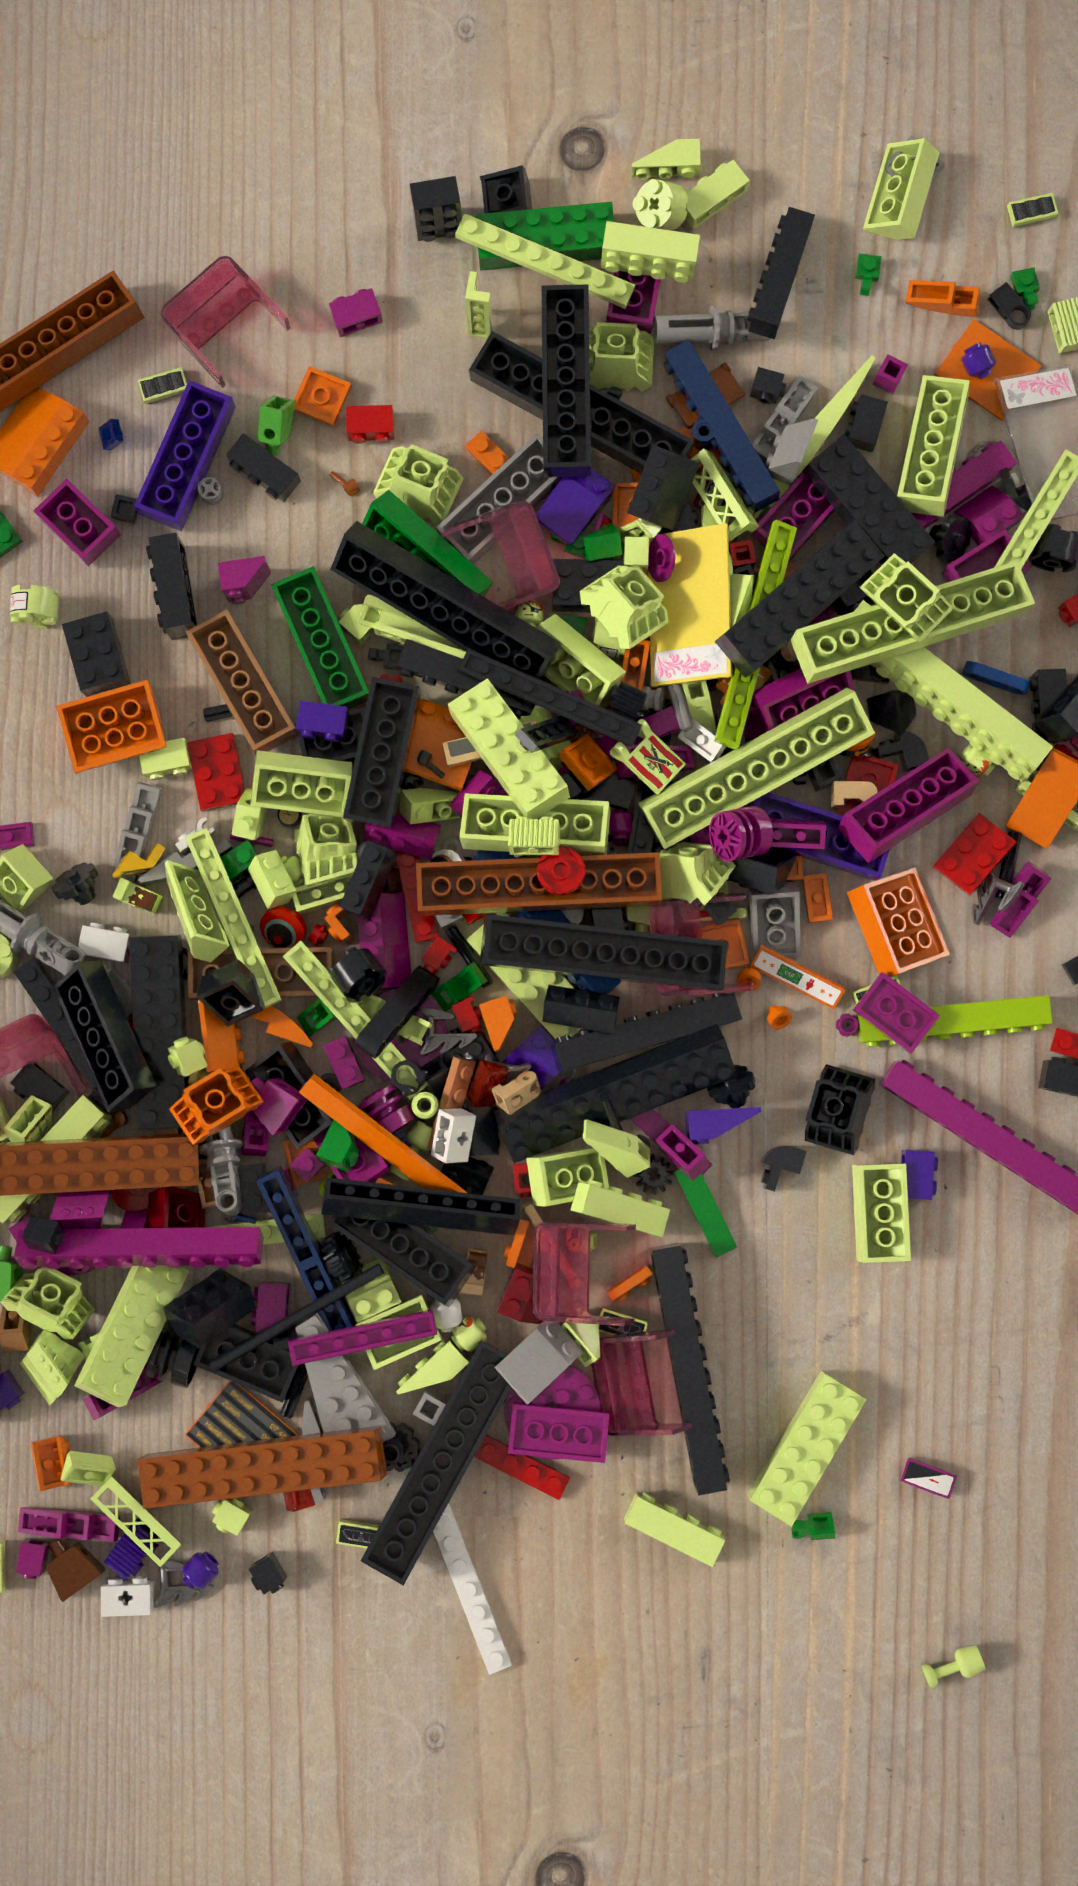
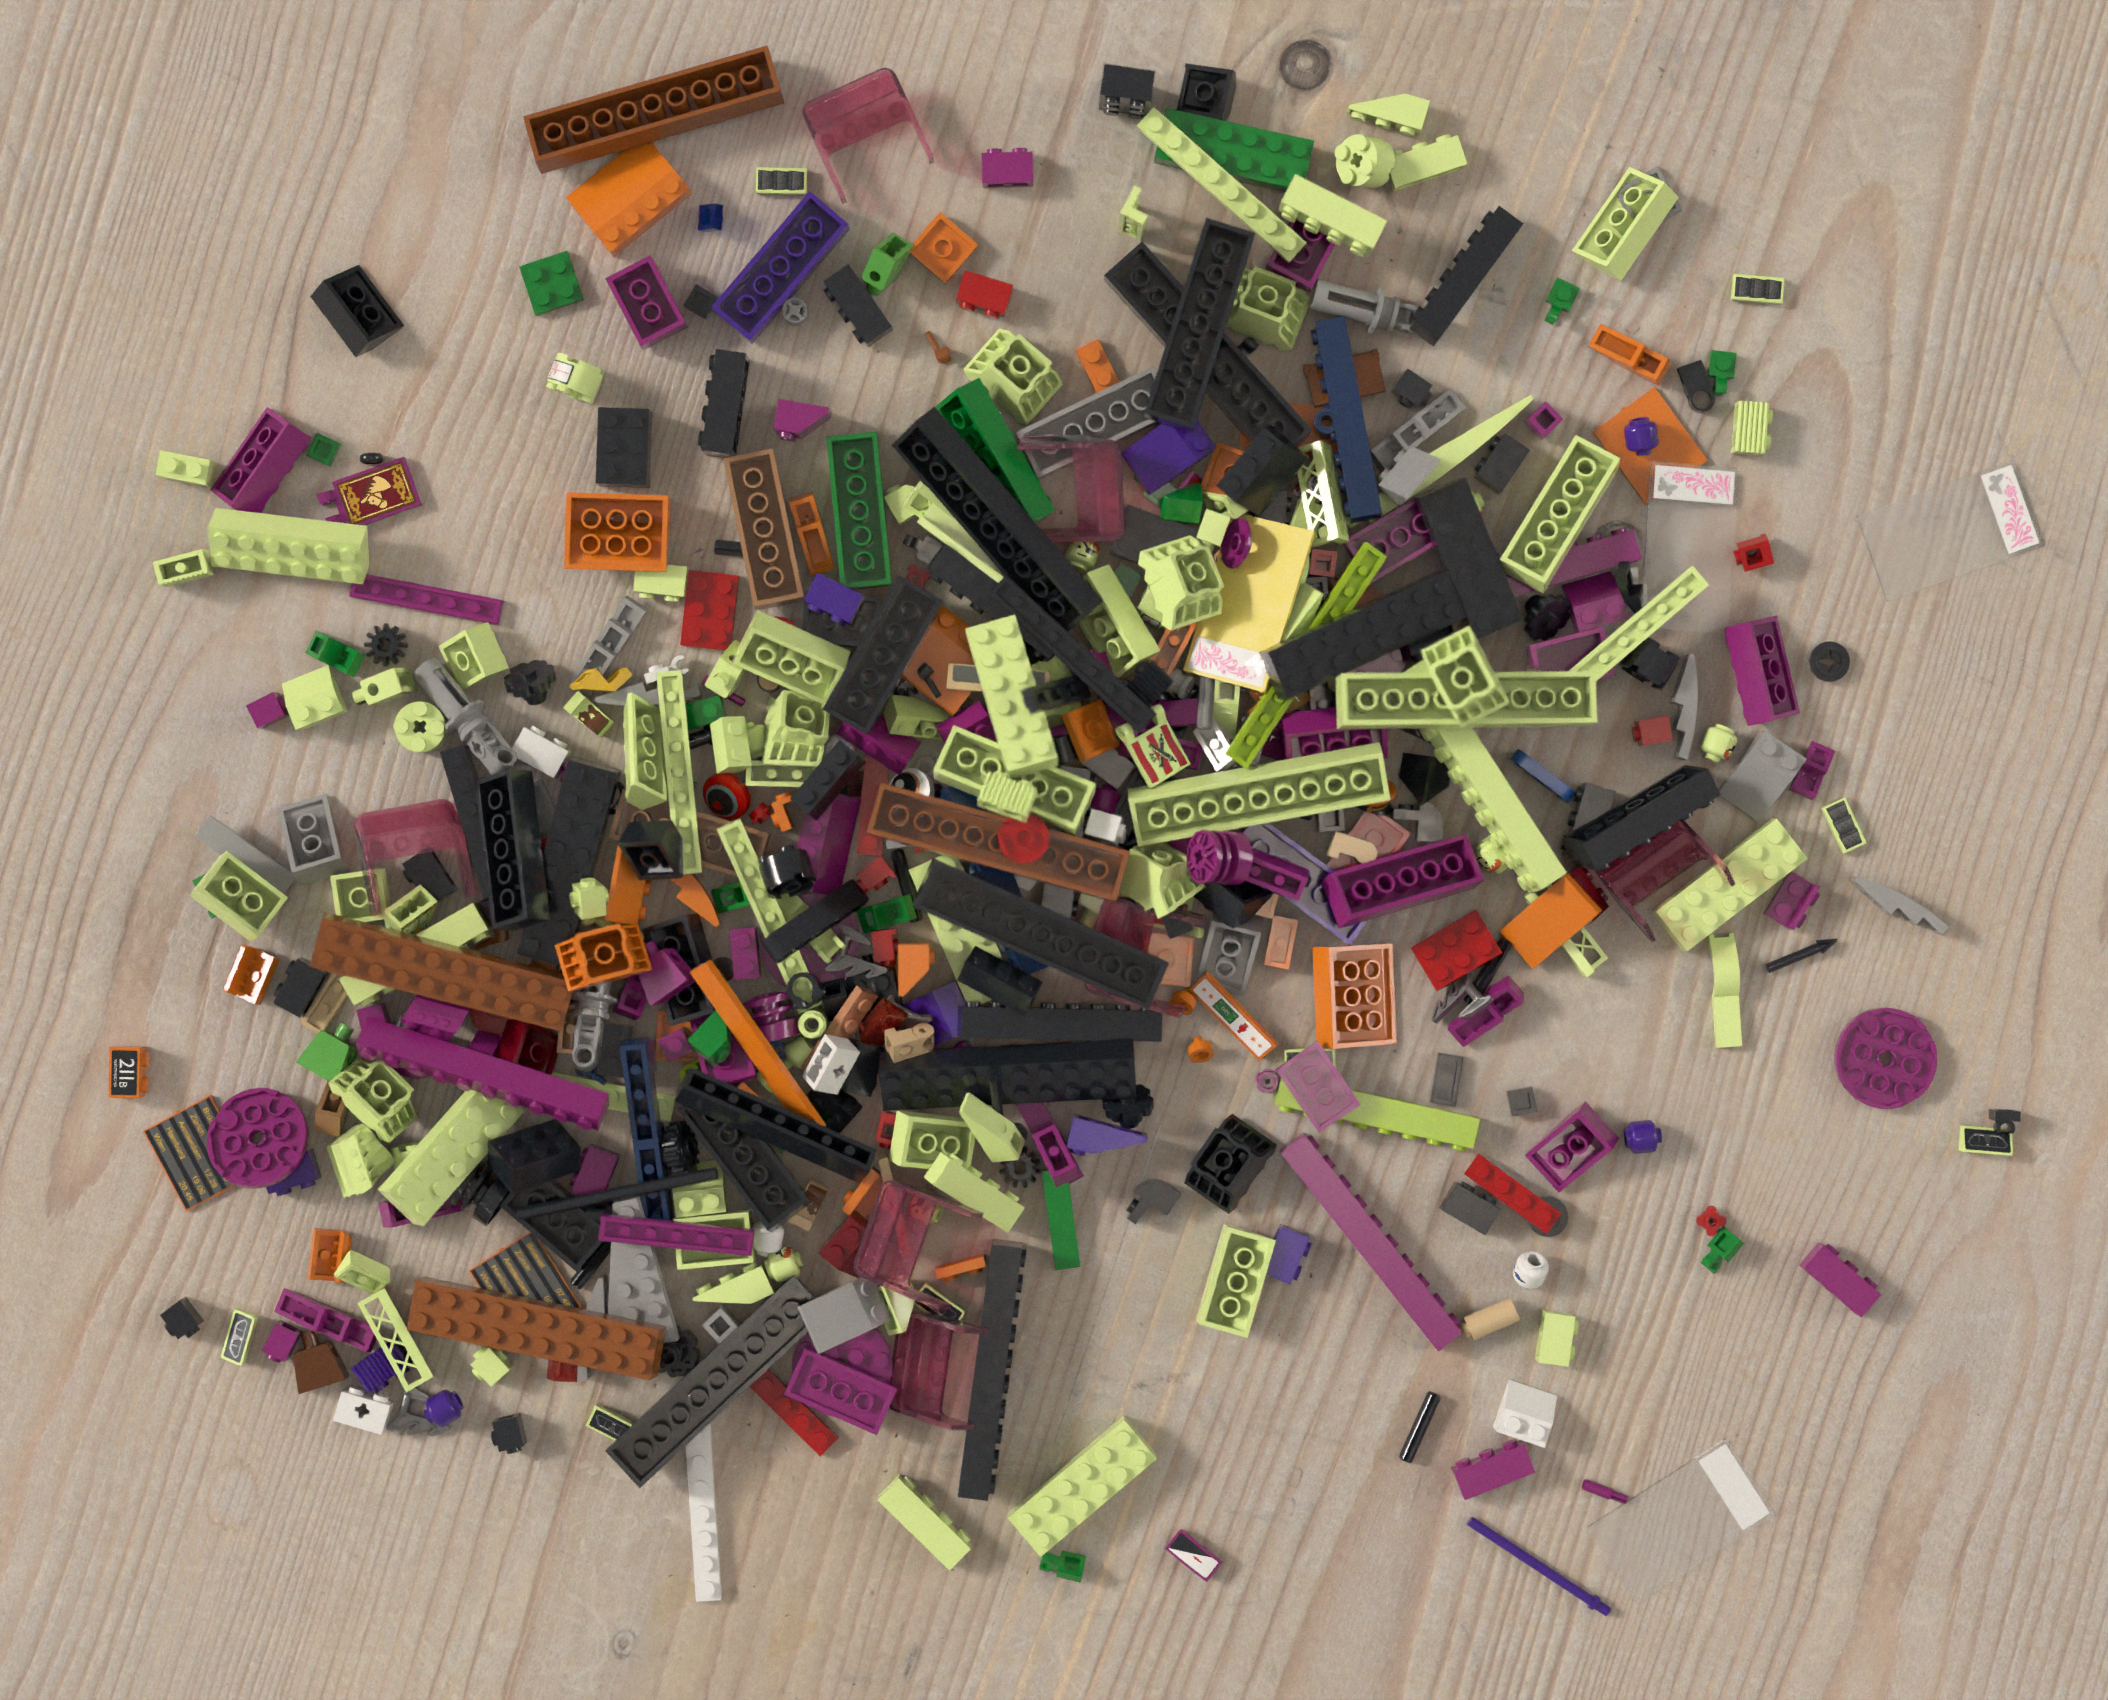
camera: 20 degrees right, 5 degrees up
(43, 1235) = (392, 1031): black brick -> none
(285, 674) = (811, 533): none -> orange slope
(630, 840) = (1106, 828): none -> white brick
(1005, 971) = (1446, 1079): none -> tile

